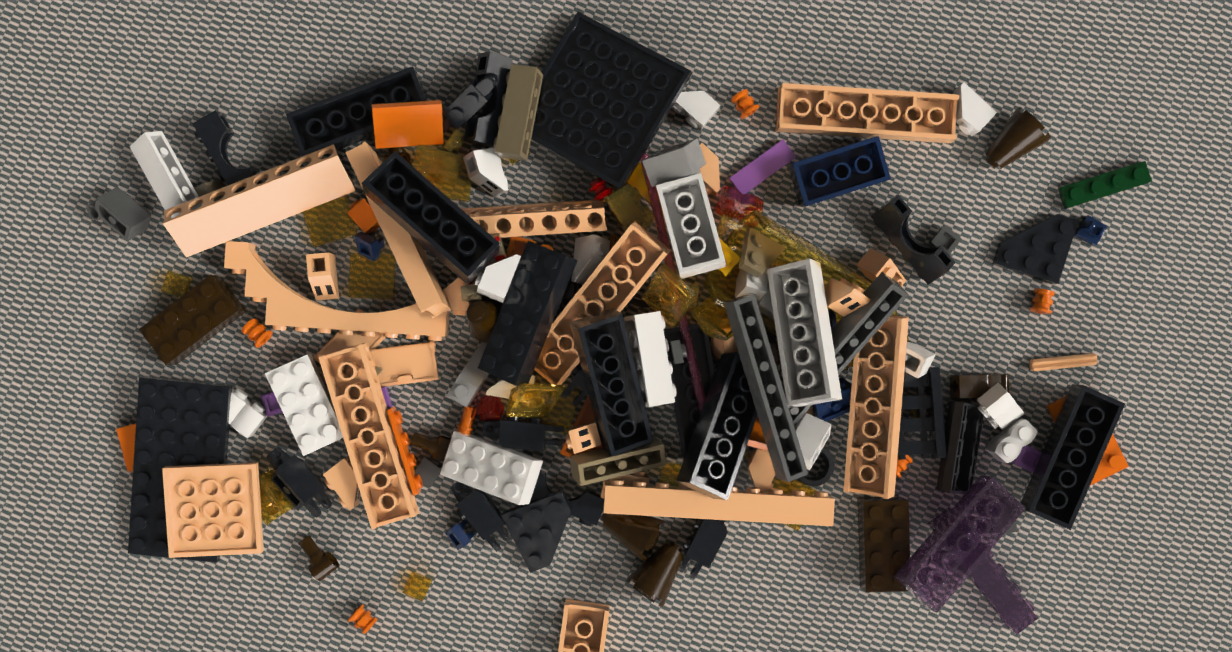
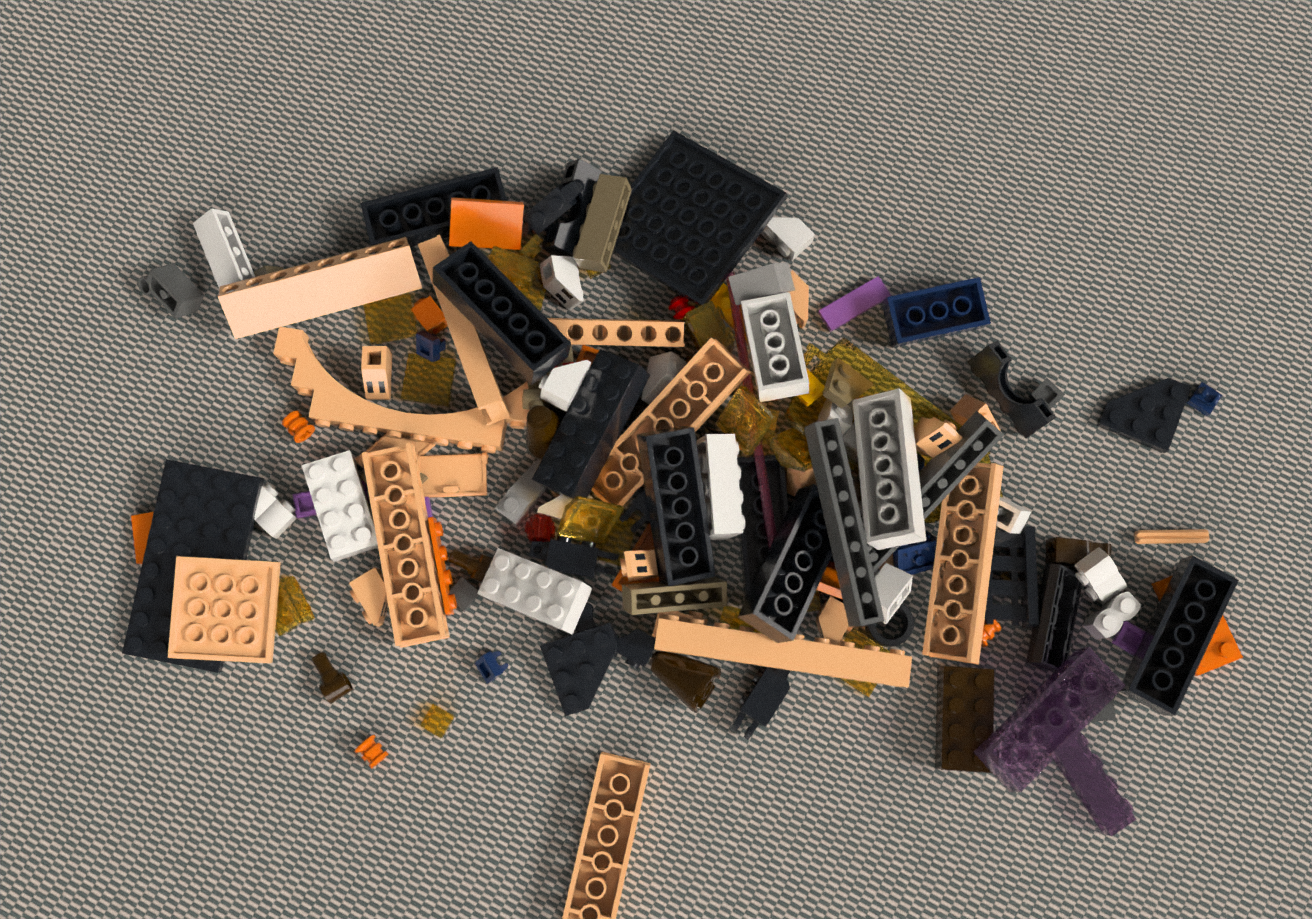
camera: 10 degrees right, 10 degrees down
(176, 284) = (219, 369): clear yellow plate -> none
(192, 320) = (231, 407): dark brown brick -> none
(215, 134) = (284, 221): black arch -> none
(297, 482) = (320, 590): black hinge -> none
(467, 420) = (513, 539): orange pin -> none
(481, 513) = (517, 643): black hinge -> none
(657, 574) = (707, 729): dark brown cone -> none
(678, 351) = (750, 480): dark grey plate -> none
(737, 205) = (822, 335): clear red brick -> none
(744, 104) = (840, 237): orange bush -> none
(866, 113) = (966, 257): light nougat tile -> none
(972, 110) = (1079, 263): white slope -> none
(1016, 139) = (1126, 295): dark brown cone -> none
(1042, 301) = (1150, 468): orange bush -> none
(1104, 185) = (1220, 353): dark green plate -> none

